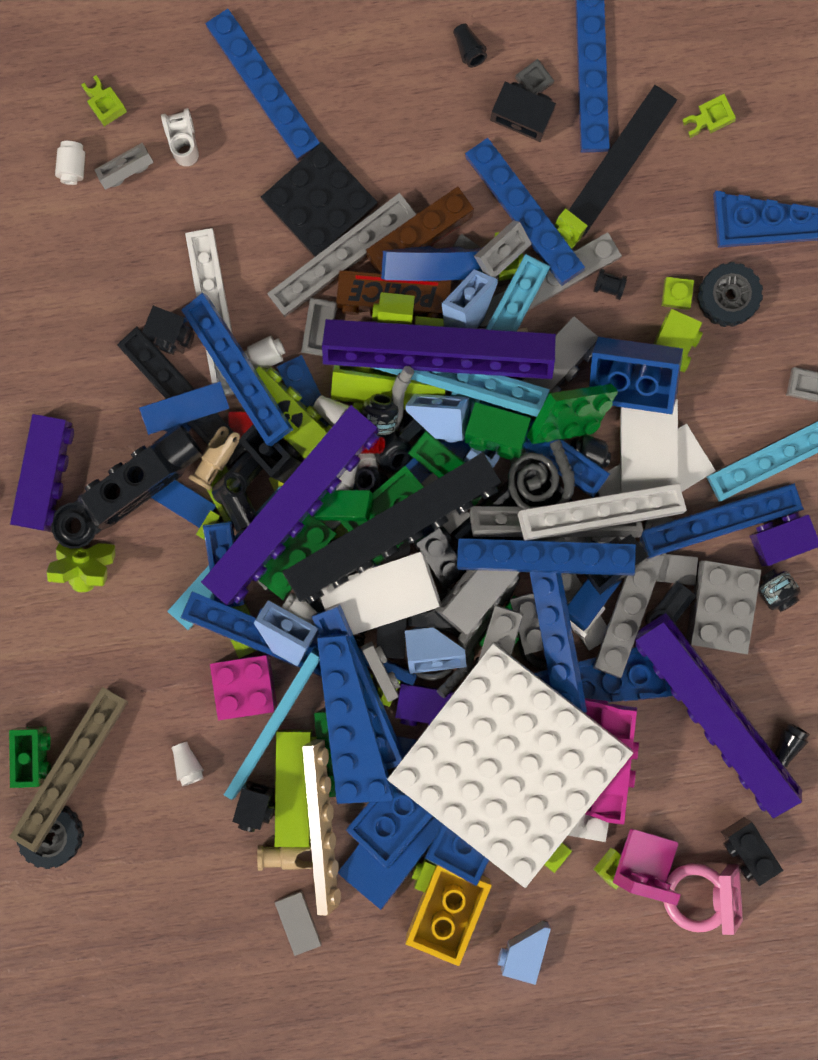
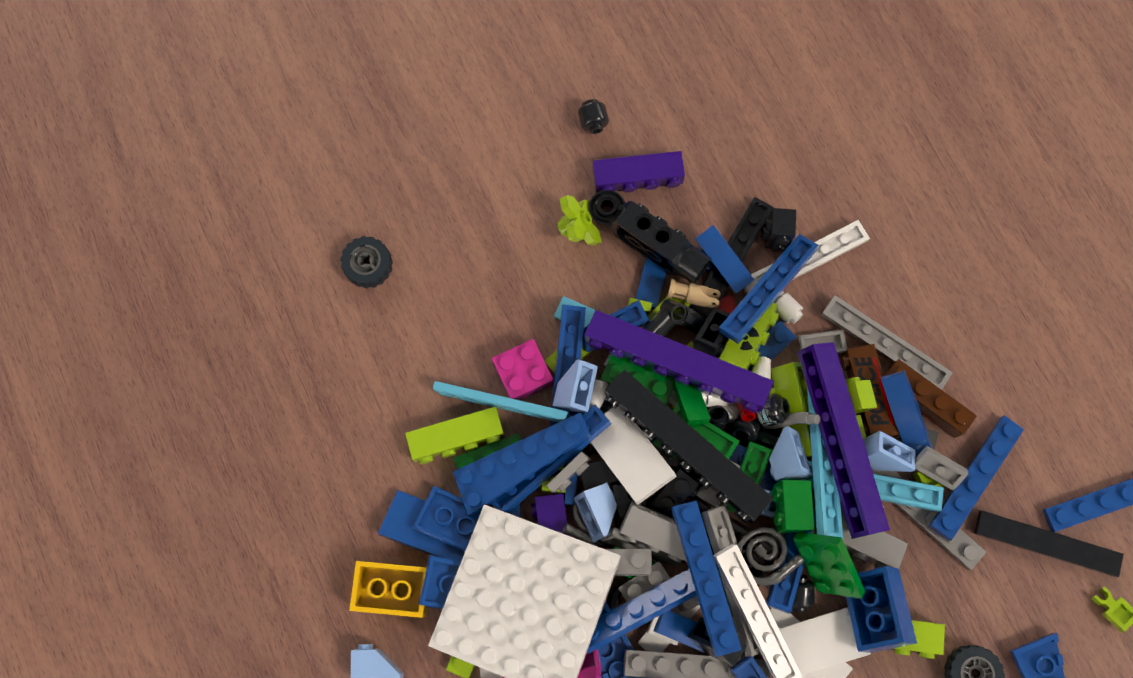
camera: 75 degrees right, 10 degrees down
(28, 756) = (422, 227): green brick -> none
(68, 770) = (421, 259): dark tan plate -> none
(70, 162) = (879, 121): white brick -> none
(104, 102) = (934, 131): lime plate -> none
(115, 171) = (884, 155): light grey plate -> none
(180, 133) = (933, 193): white piece -> none
(186, 764) = (449, 347): white cone -> none
(254, 806) = (432, 406): black brick -> none
(262, 84) = (994, 243): blue plate -> none
(282, 857) = (398, 445): tan piece -> none
(298, 923) = (349, 471): light grey tile -> none
(319, 200) = (922, 313): black plate -> none
(320, 822) = (426, 466): tan plate -> none
(422, 875) = (415, 559): lime plate -> none
(470, 47) = (1090, 393): black cone -> none
(523, 110) = (1057, 450): black brick -> none
(535, 78) = (1086, 453): dark grey tile -> none
(570, 227) = (978, 518): lime bracket -> none
(610, 284) = (944, 567): black bush -> none
(677, 293) = (958, 627): lime plate -> none

